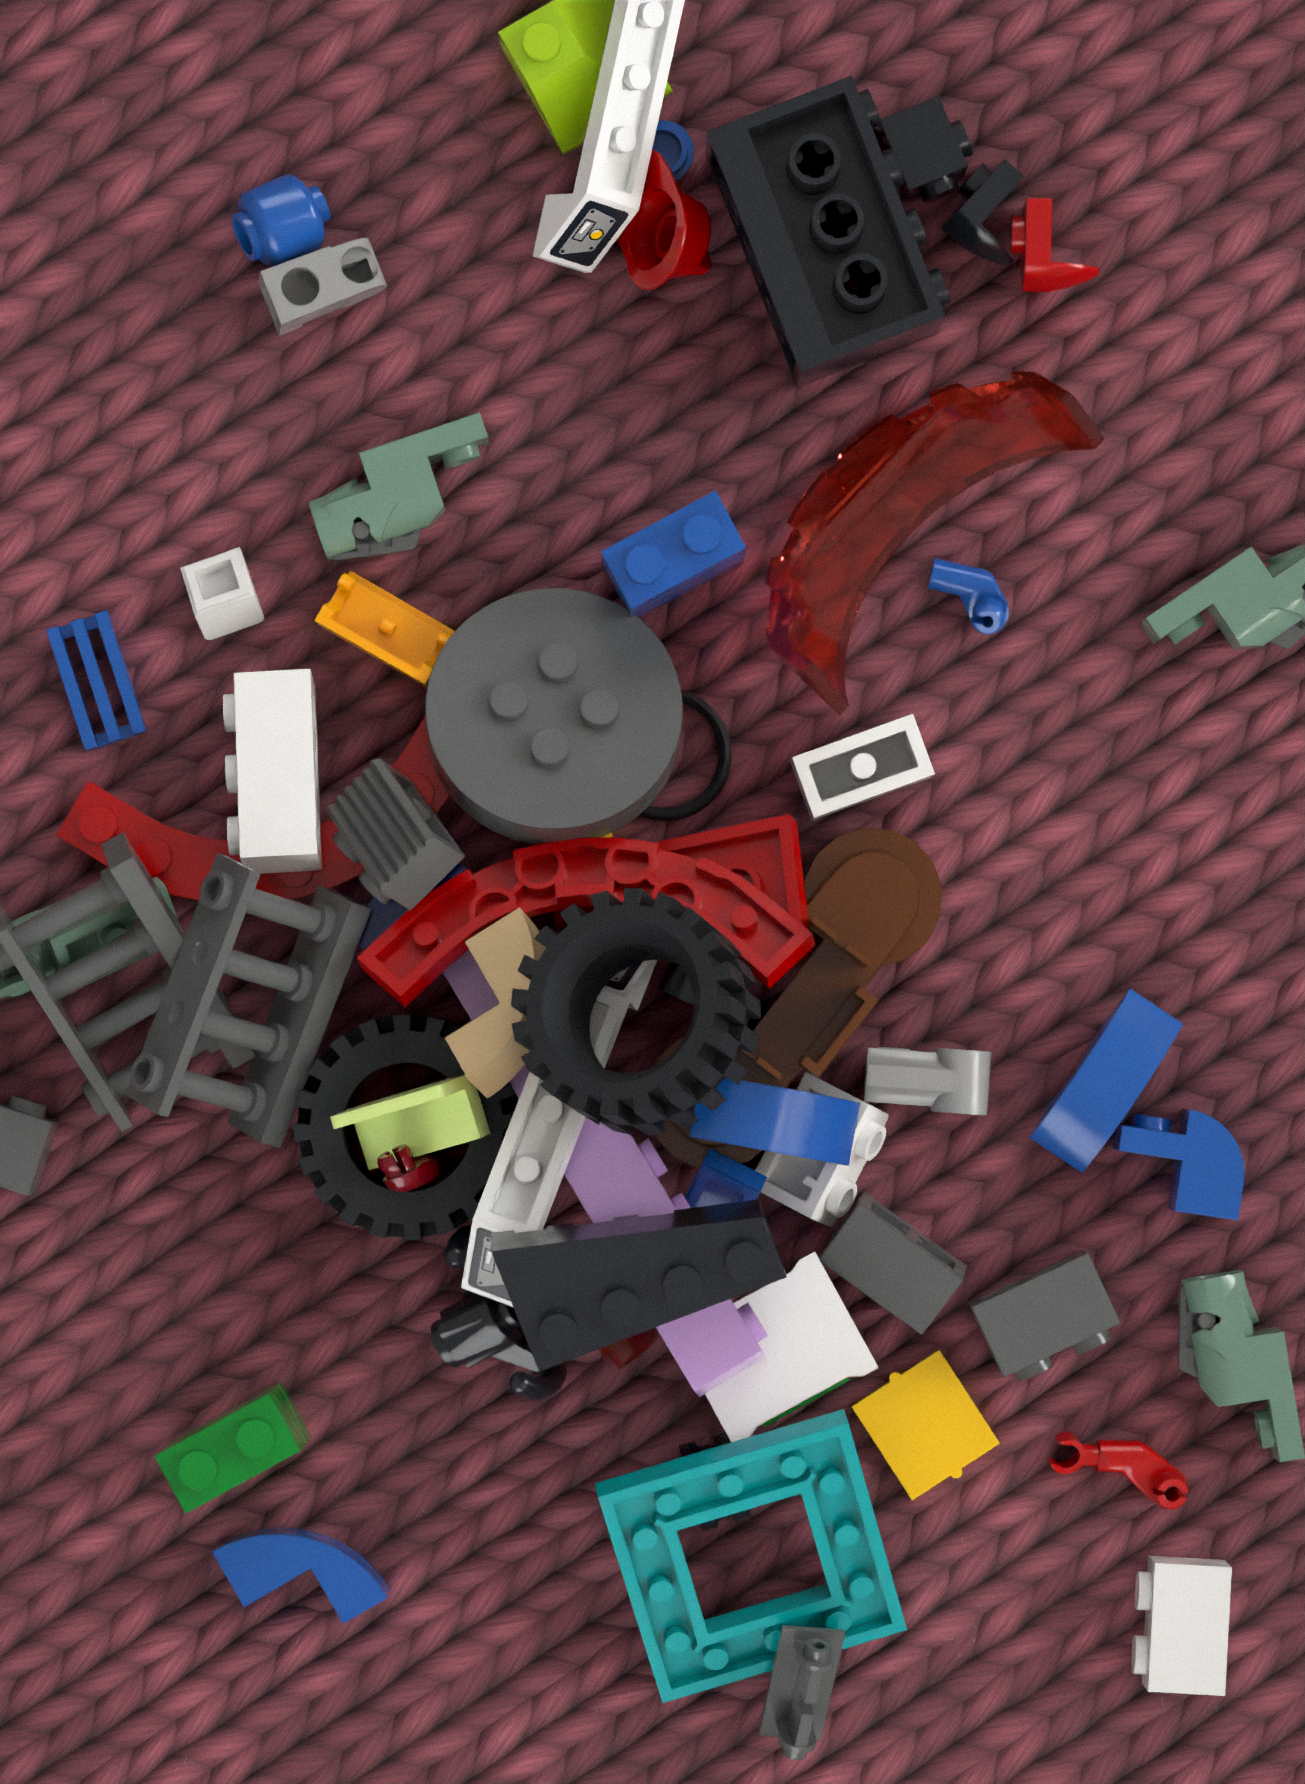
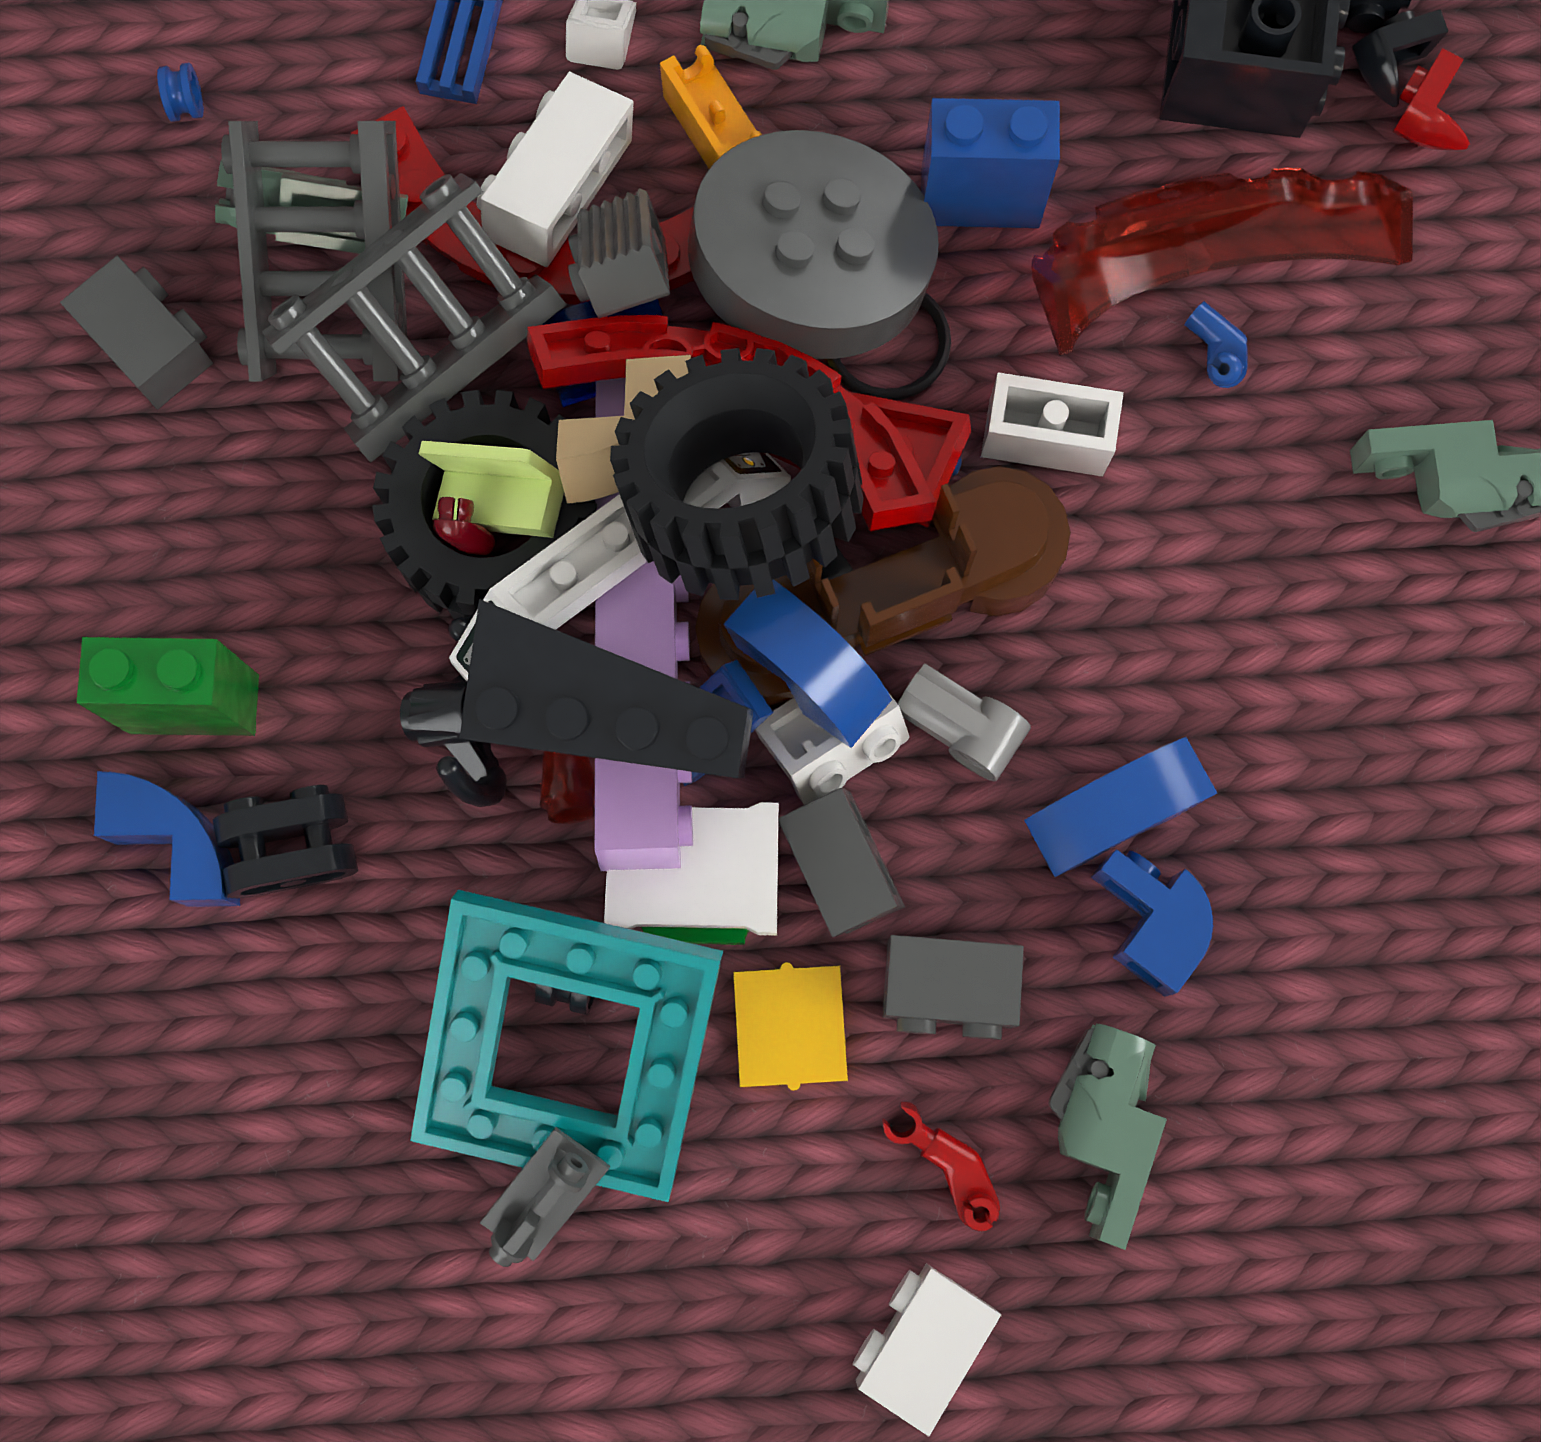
camera: 30 degrees right, 10 degrees down
(368, 1519) = (252, 823): none -> black brick

